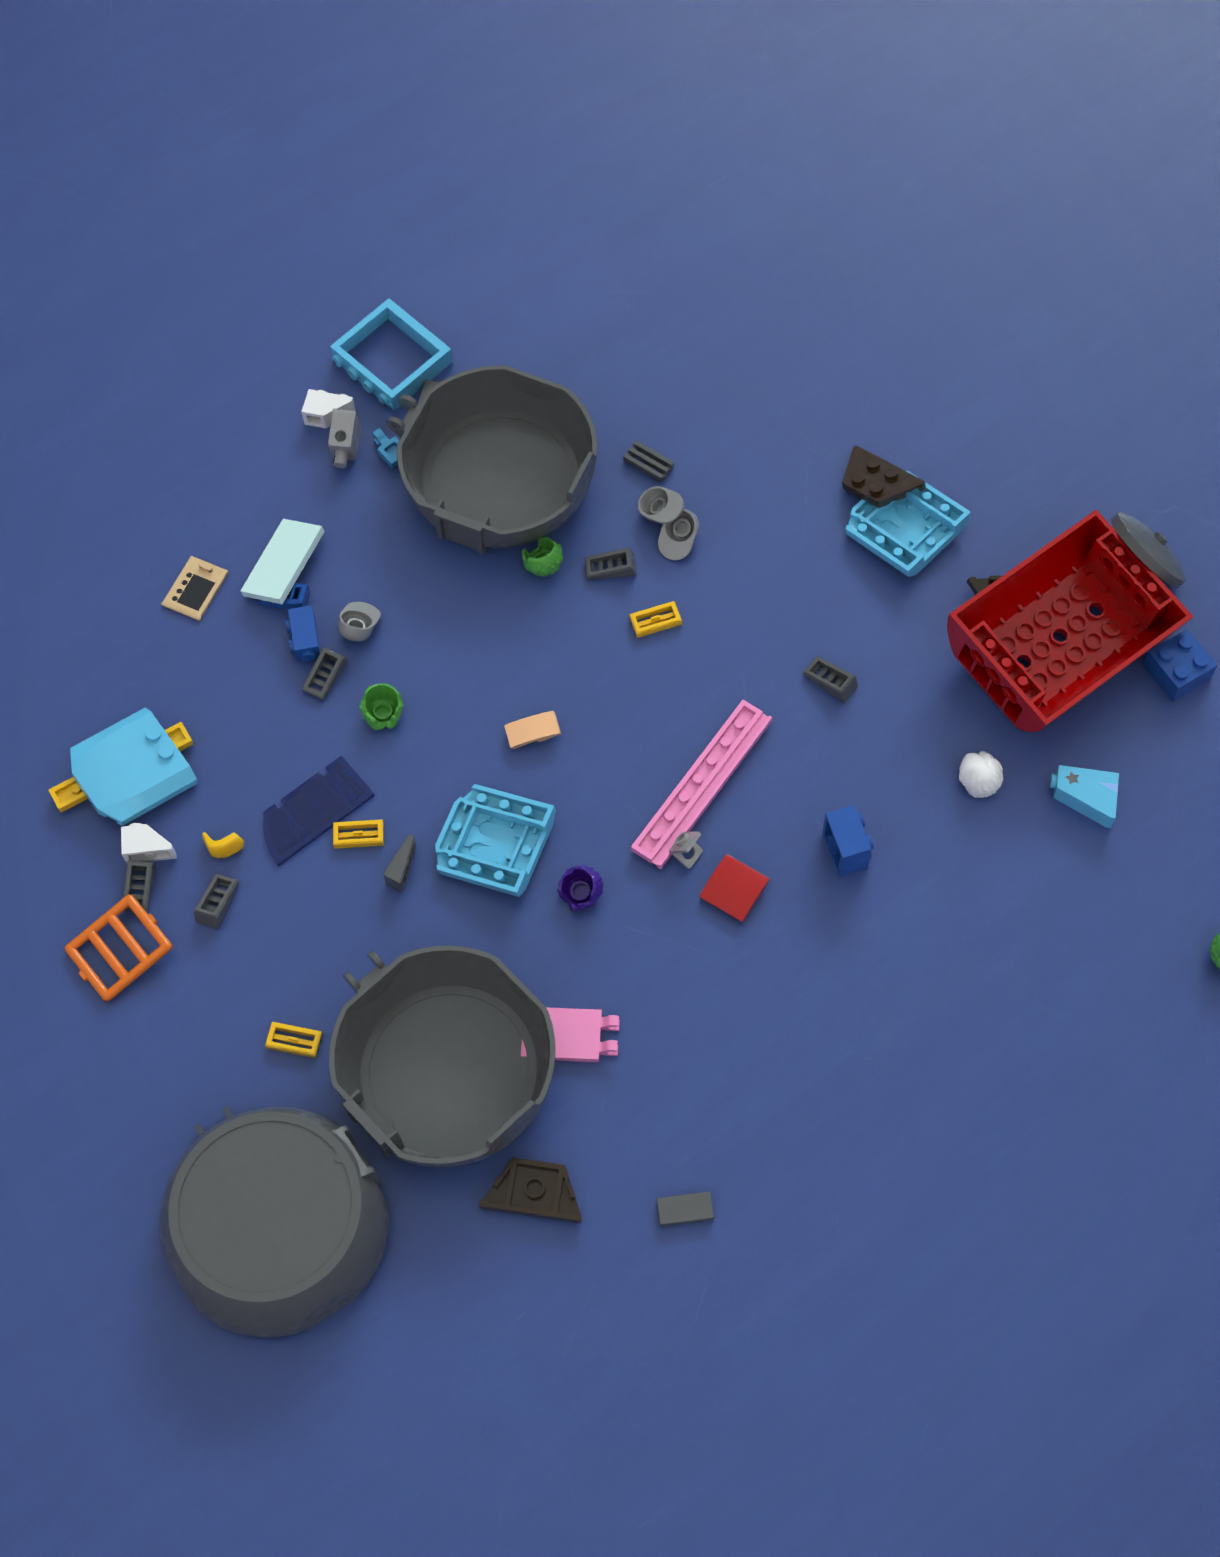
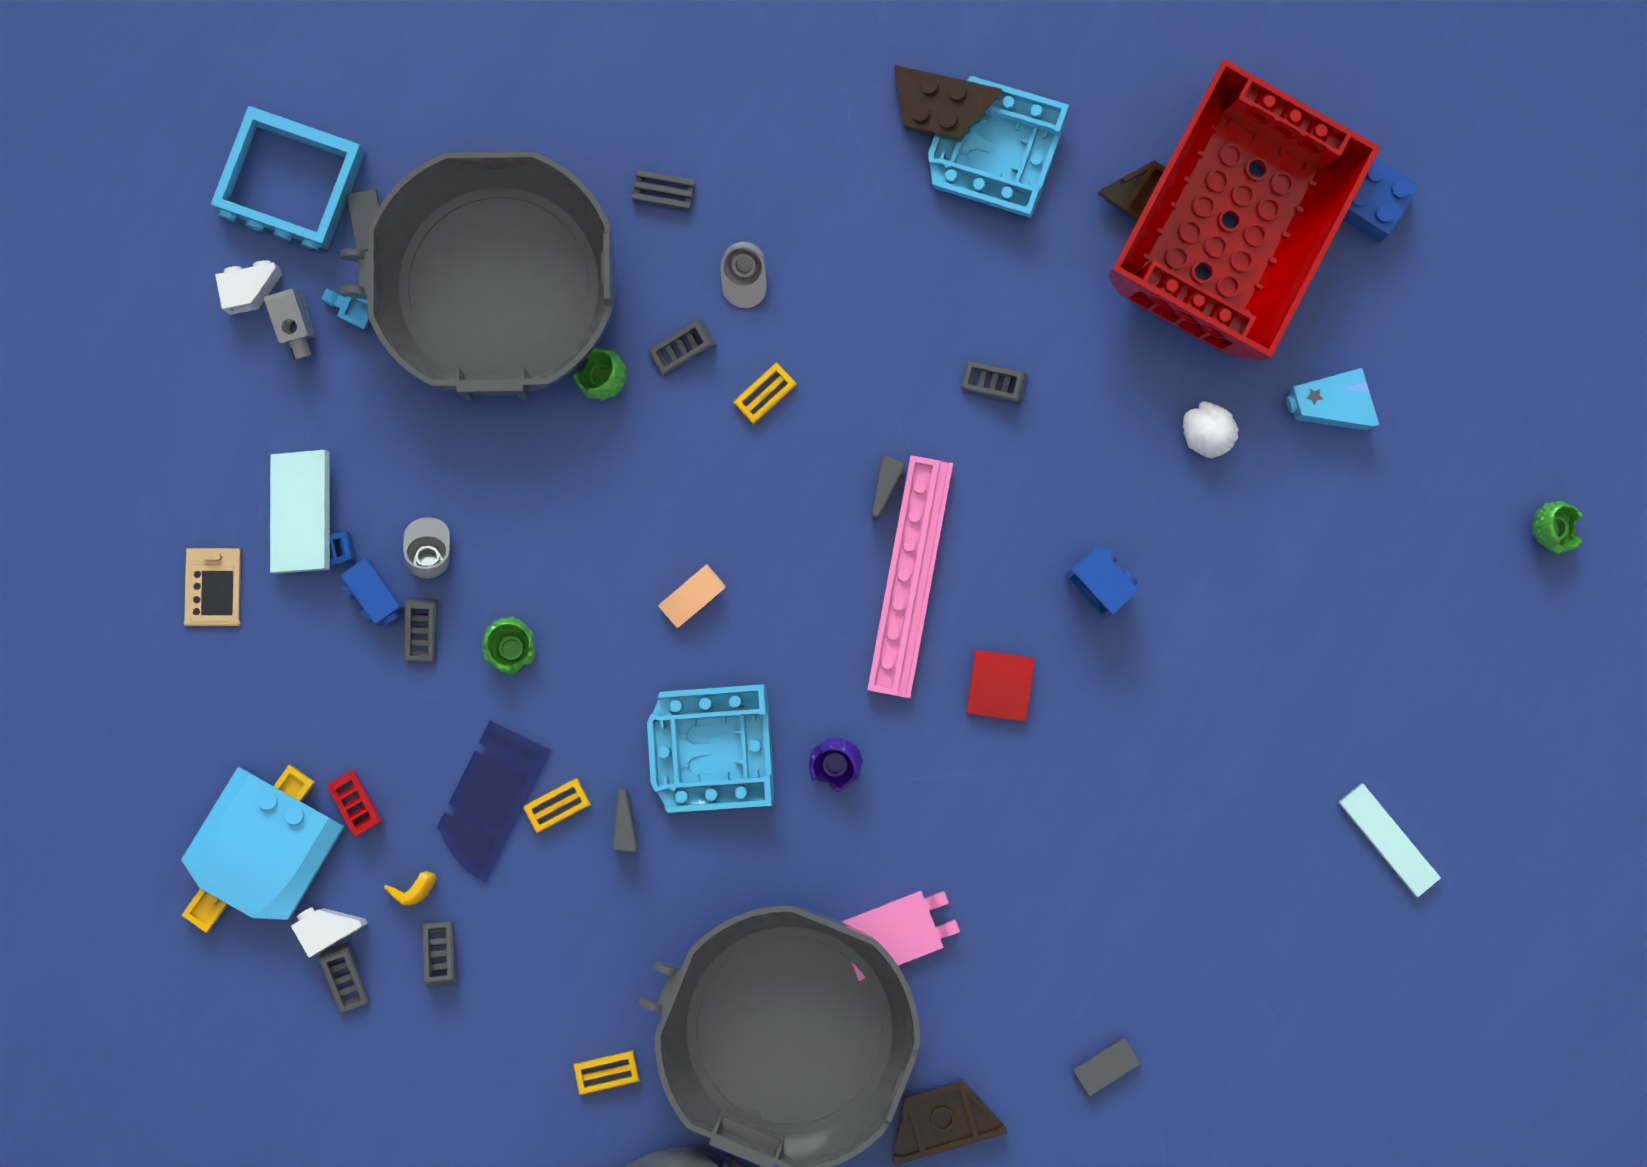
camera: 30 degrees left, 20 degrees up
(145, 960) = (321, 1057): orange bar -> none
(213, 787) = (375, 817): none -> red slope
(660, 505) = (708, 249): light grey cap -> none
(683, 844) = (928, 664): light grey bracket -> none
(716, 711) = (888, 477): none -> dark grey slope
(995, 1135) = (1389, 840): none -> light aqua tile
(1149, 548) = (1292, 73): dark grey dish -> none

